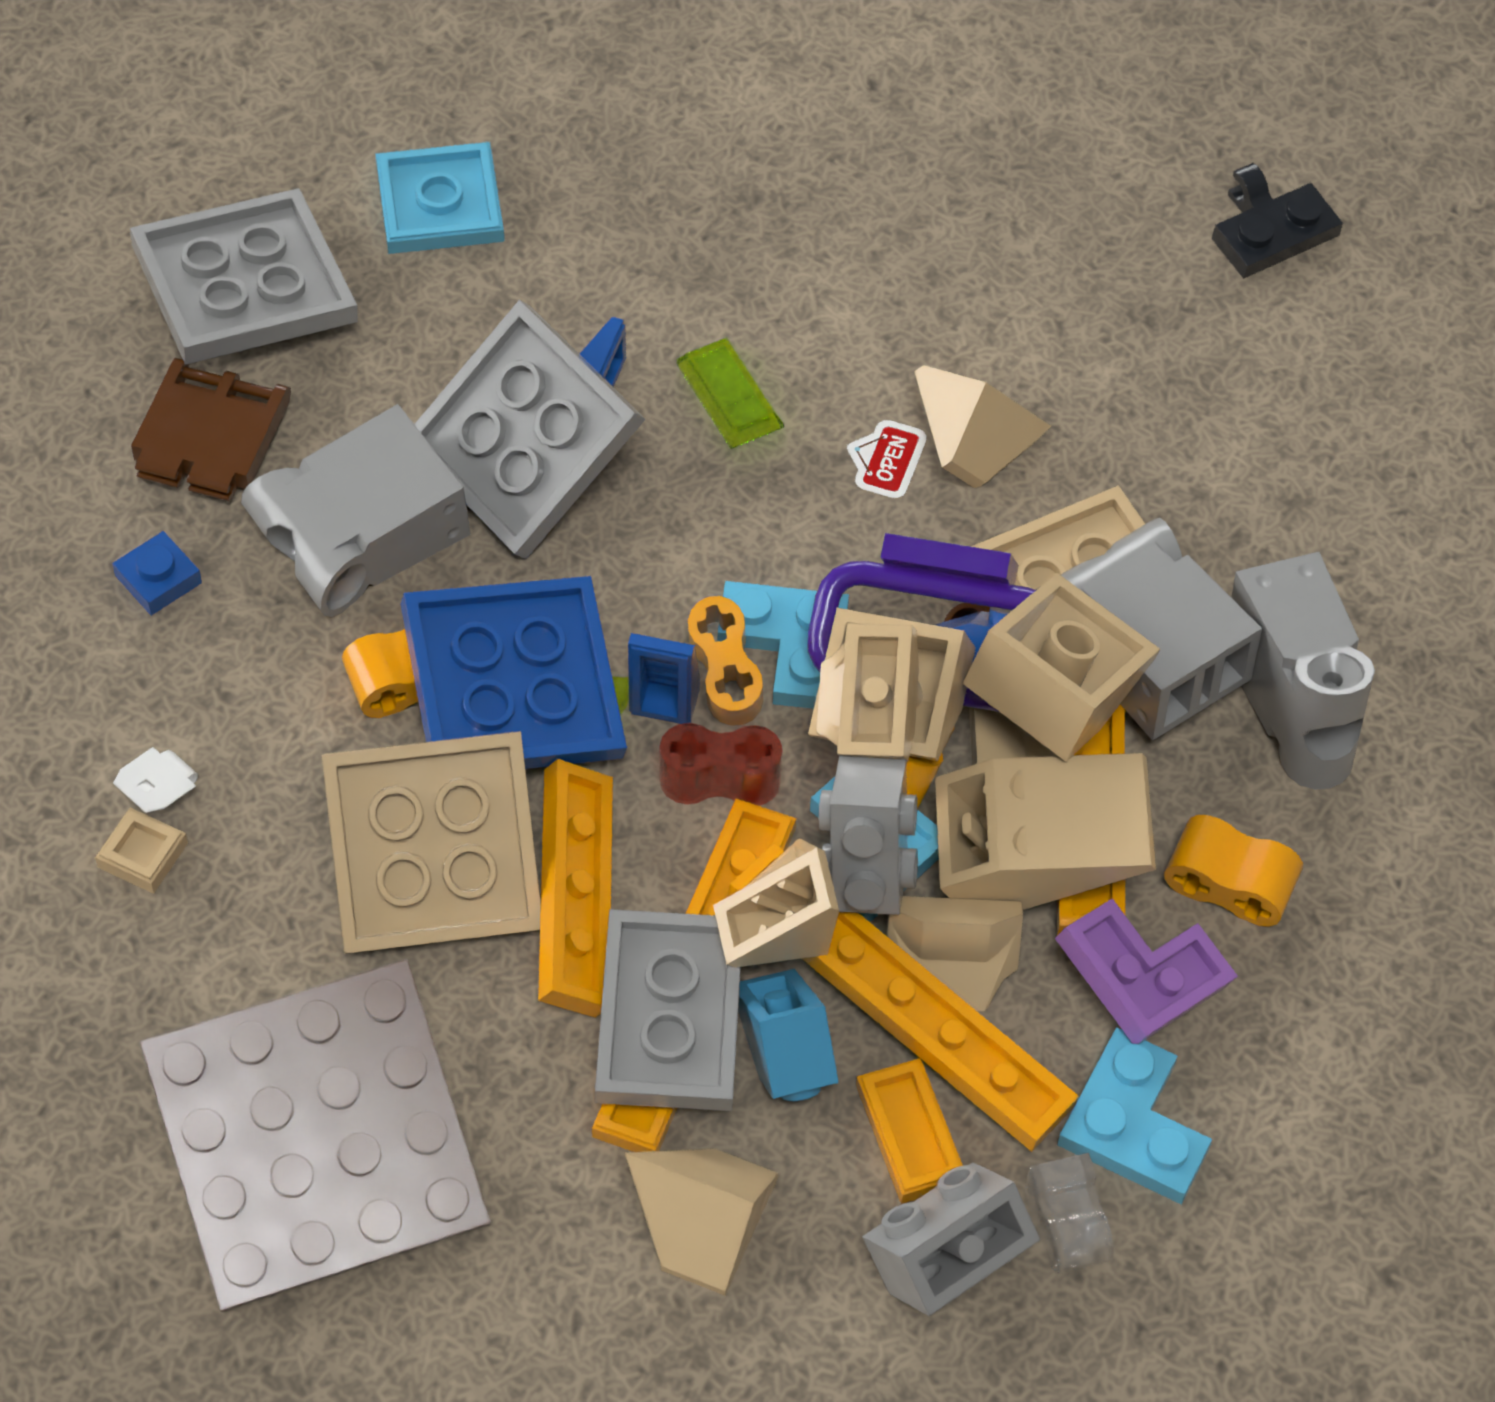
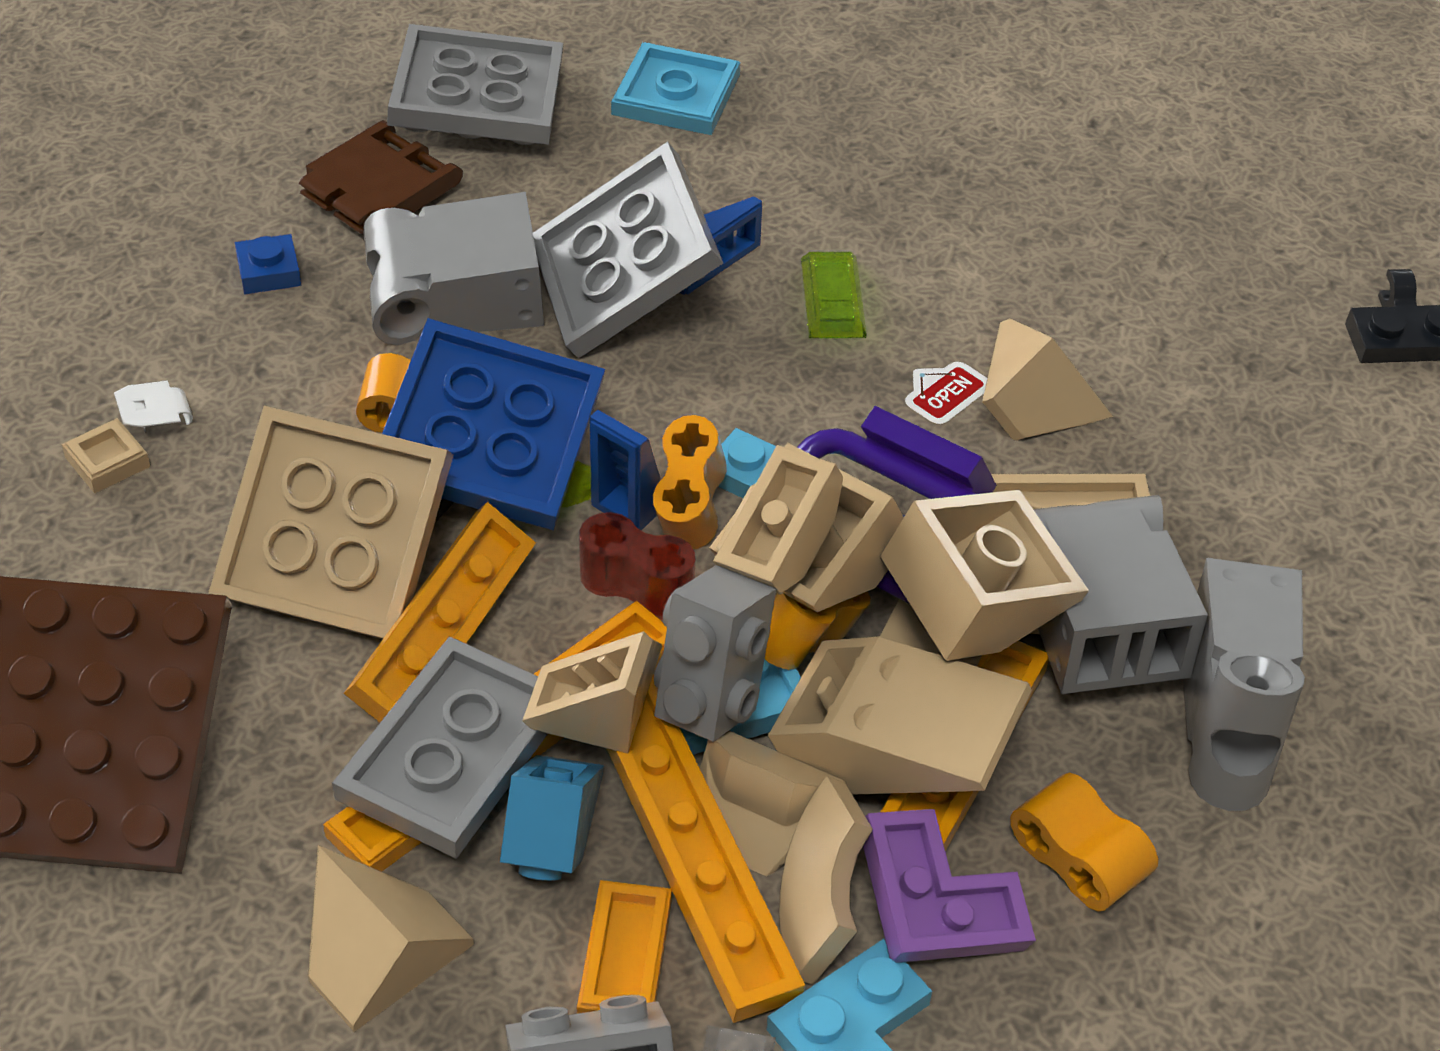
camera: 25 degrees right, 10 degrees down
(1042, 996) = (818, 877): none -> tan tile

